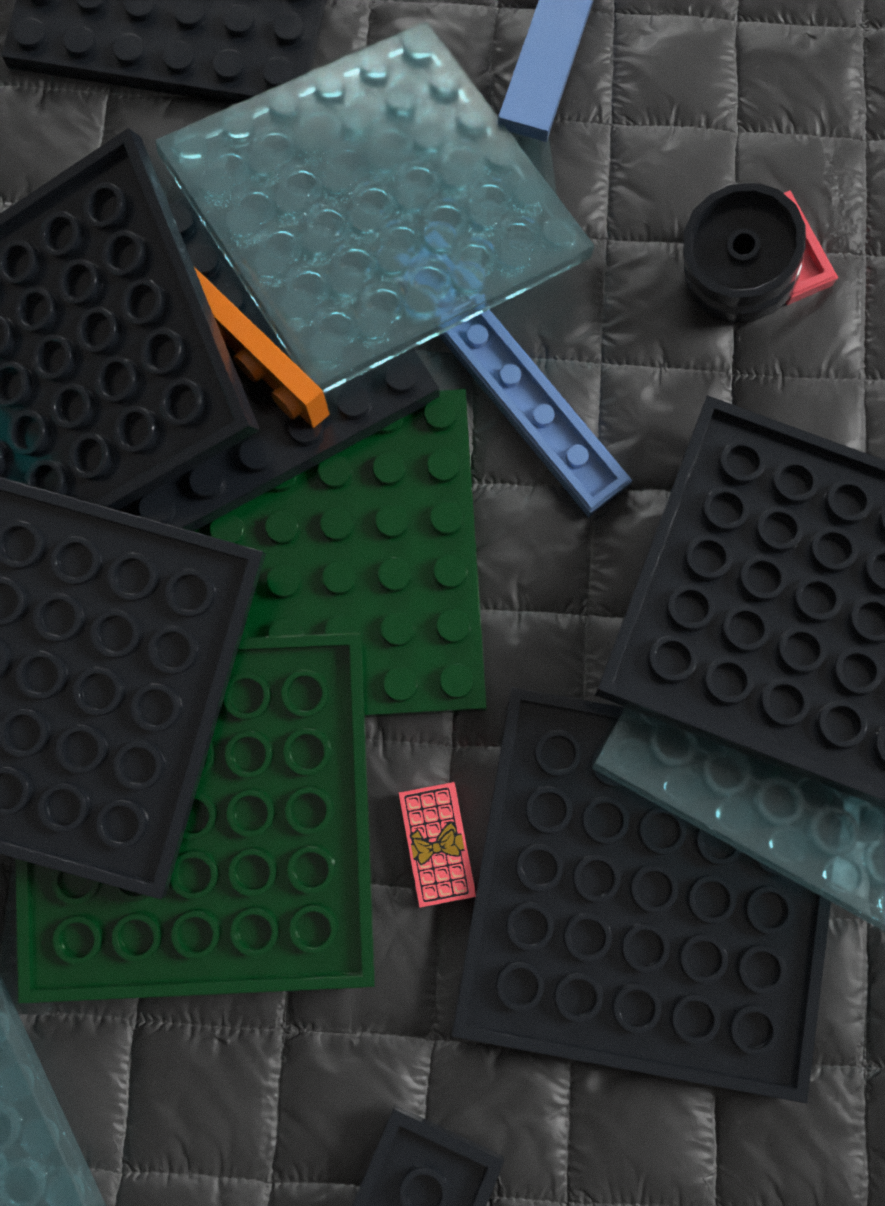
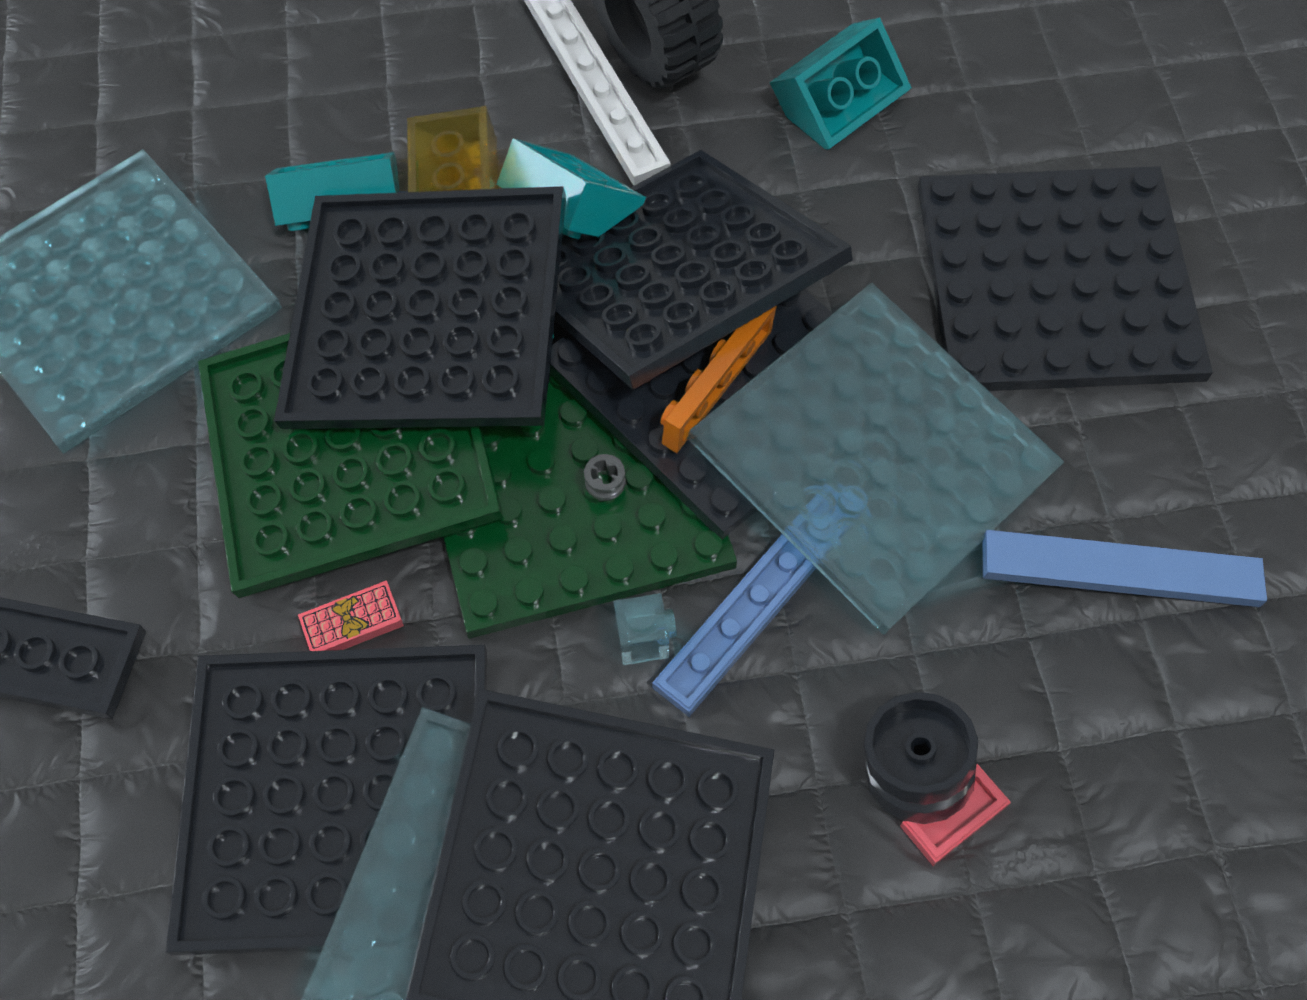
camera: 80 degrees right, 15 degrees down
(319, 497) = (595, 485): none -> dark grey bush
(532, 505) = (644, 628): none -> clear light blue brick

